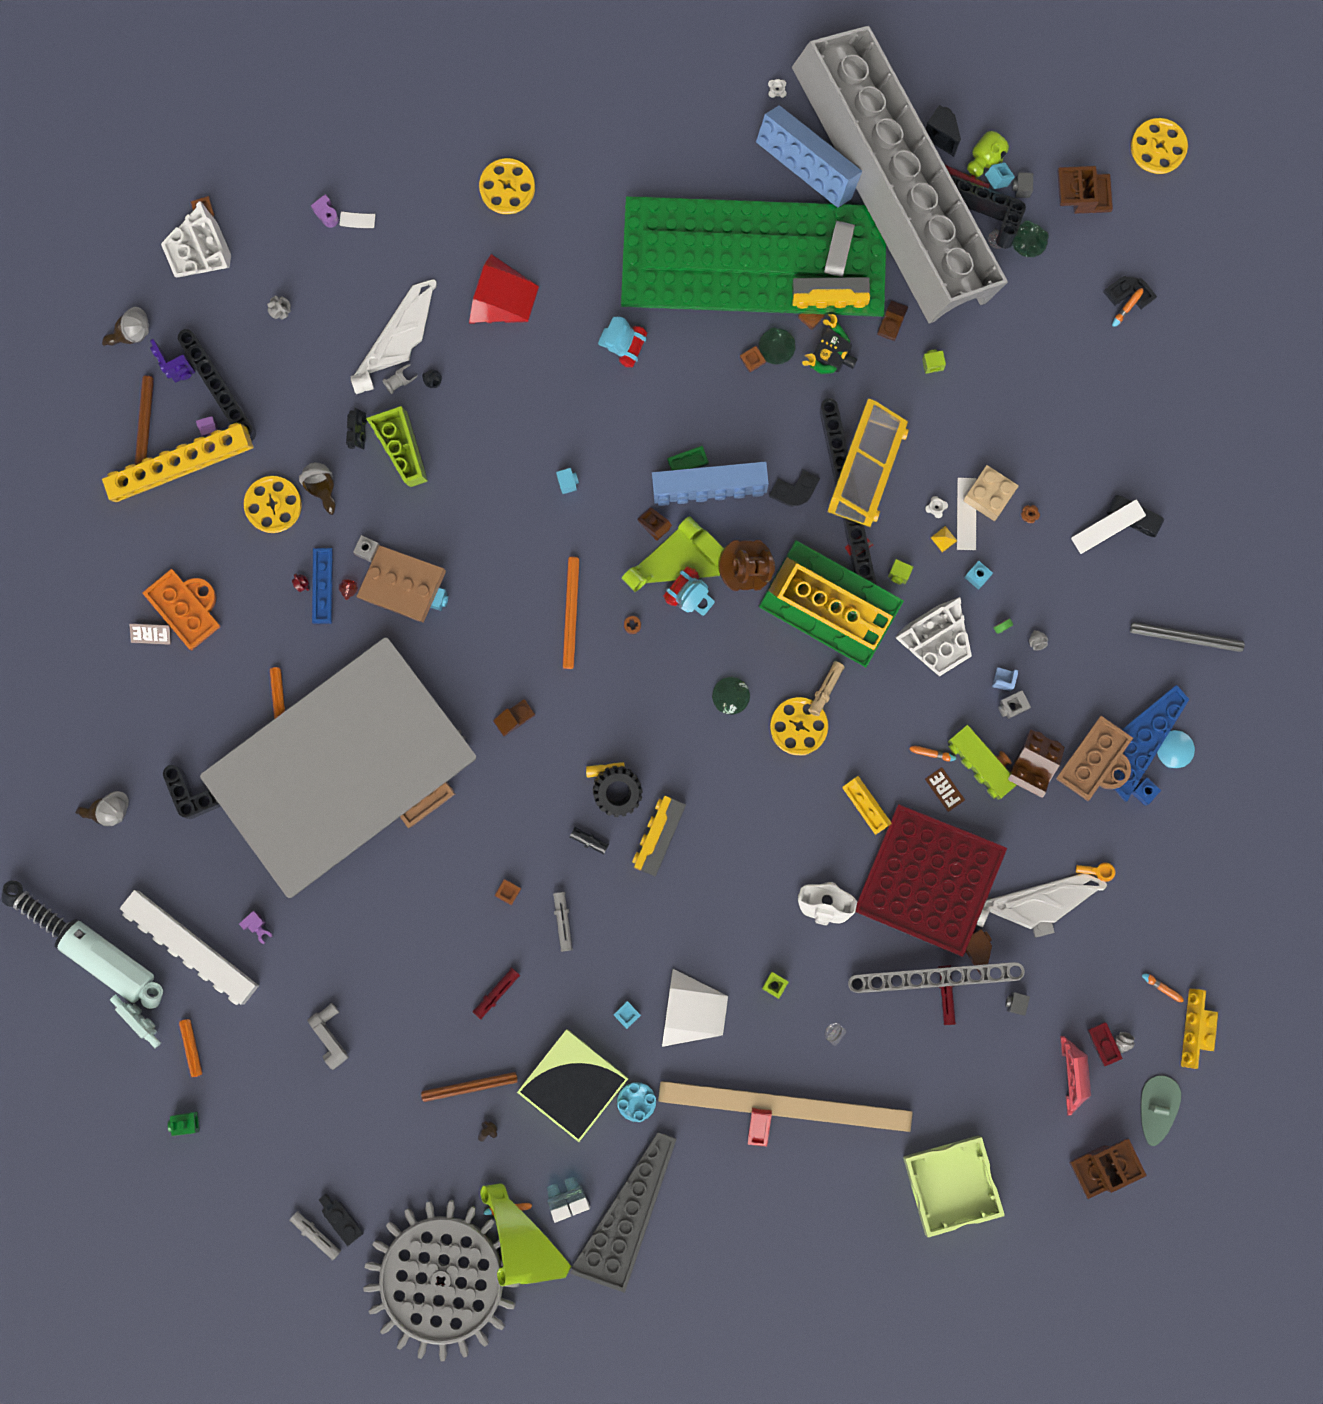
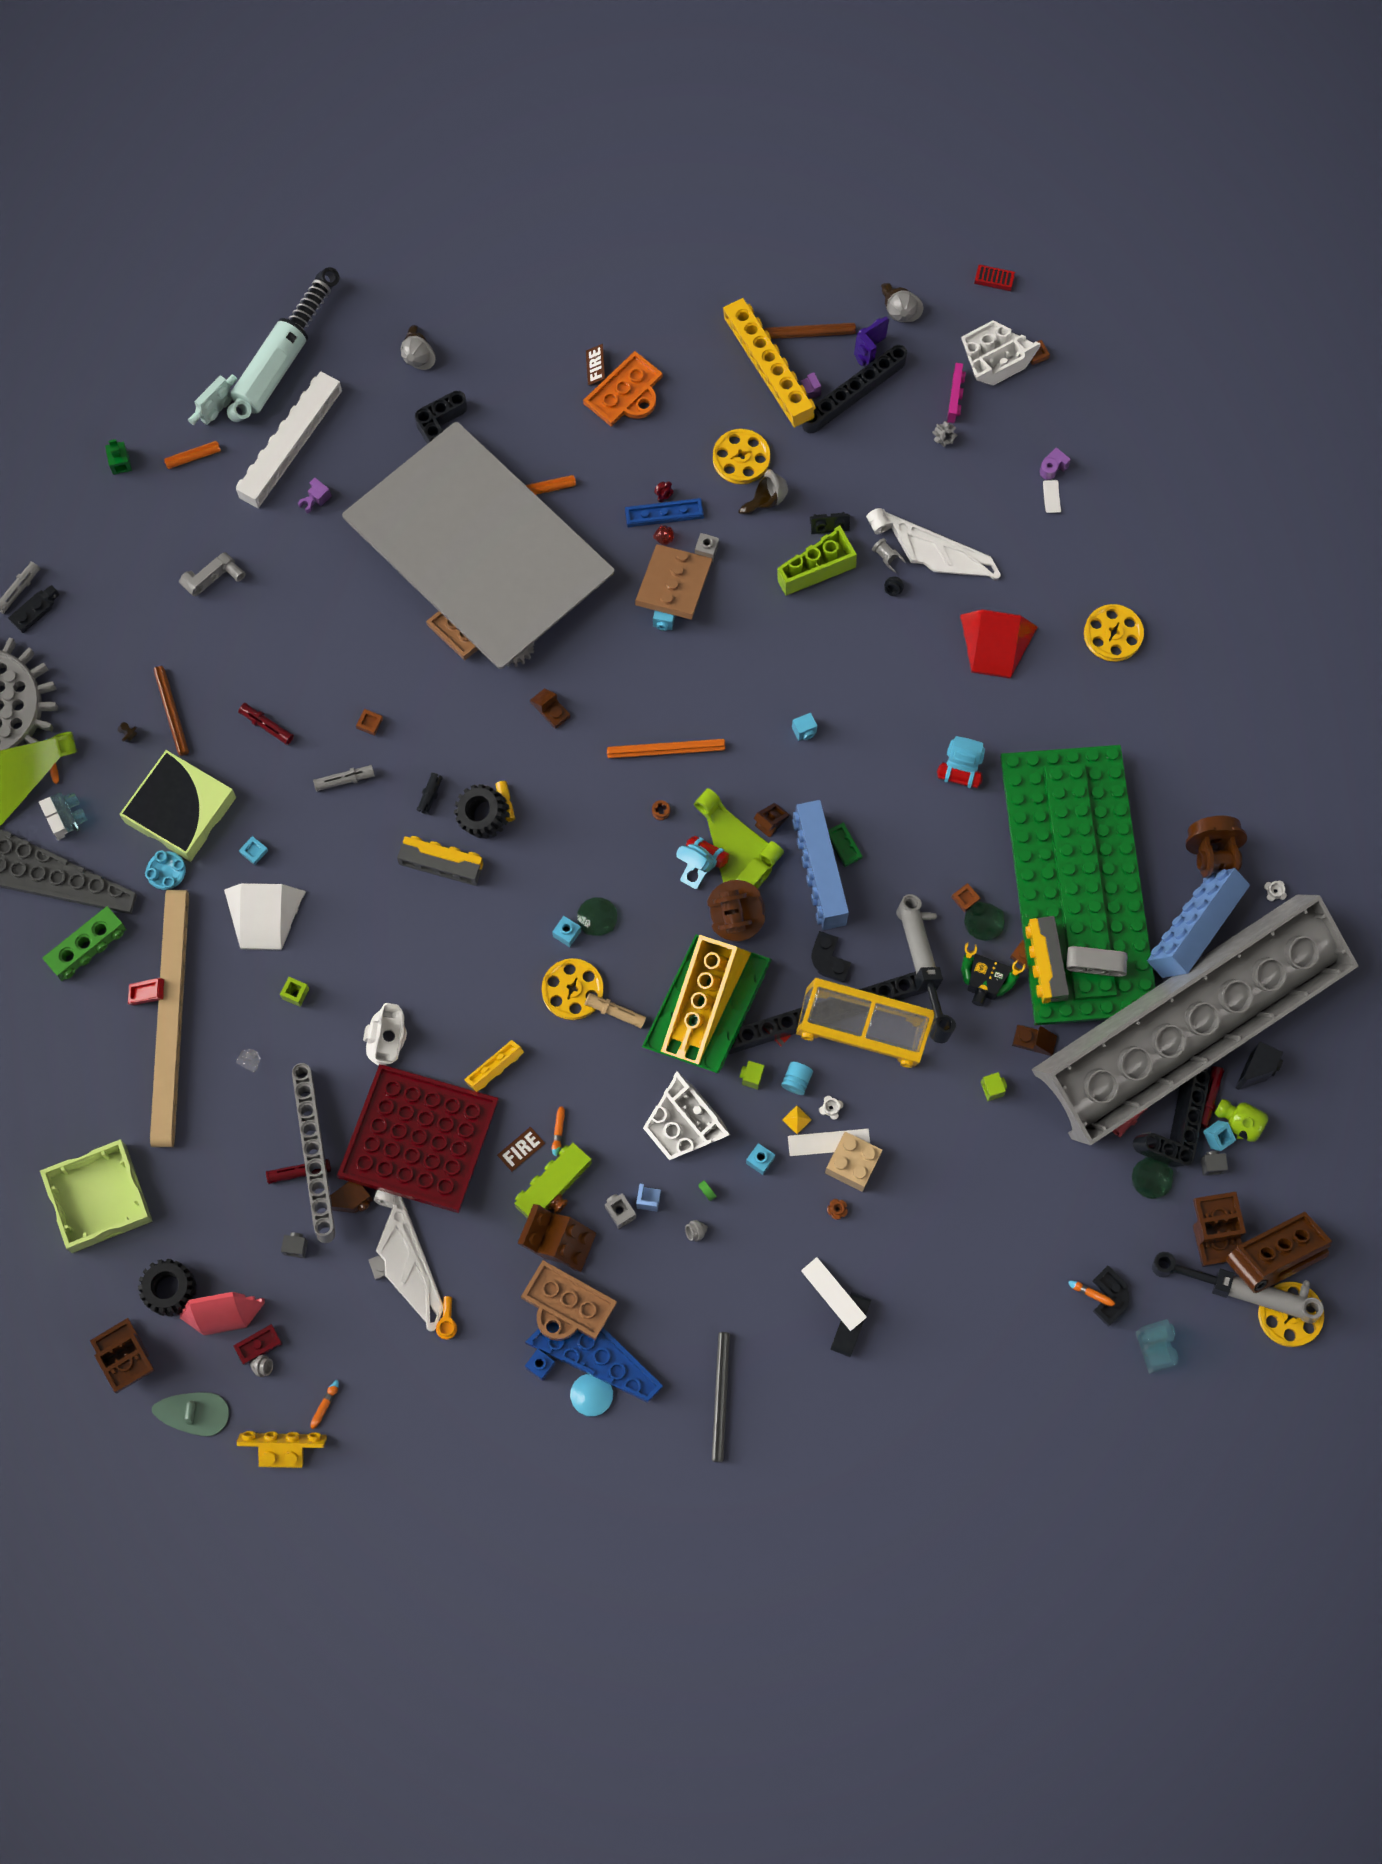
camera: 80 degrees right, 10 degrees down
(112, 235) = (994, 277): none -> red tile
(235, 290) = (956, 393): none -> dark pink plate
(717, 1213) = (86, 933): none -> bright green brick
(725, 128) = (1216, 843): none -> reddish brown piece
(743, 732) = (566, 937): none -> medium azure plate
(831, 401) = (928, 975): none -> piece
(908, 532) = (797, 1078): none -> medium azure piece
(1063, 1128) = (151, 1280): none -> black tyre
(1112, 142) = (1279, 1252): none -> reddish brown hinge
(1140, 176) = (1229, 1285): none -> light grey piece
(1179, 259) = (1156, 1346): none -> clear light blue brick

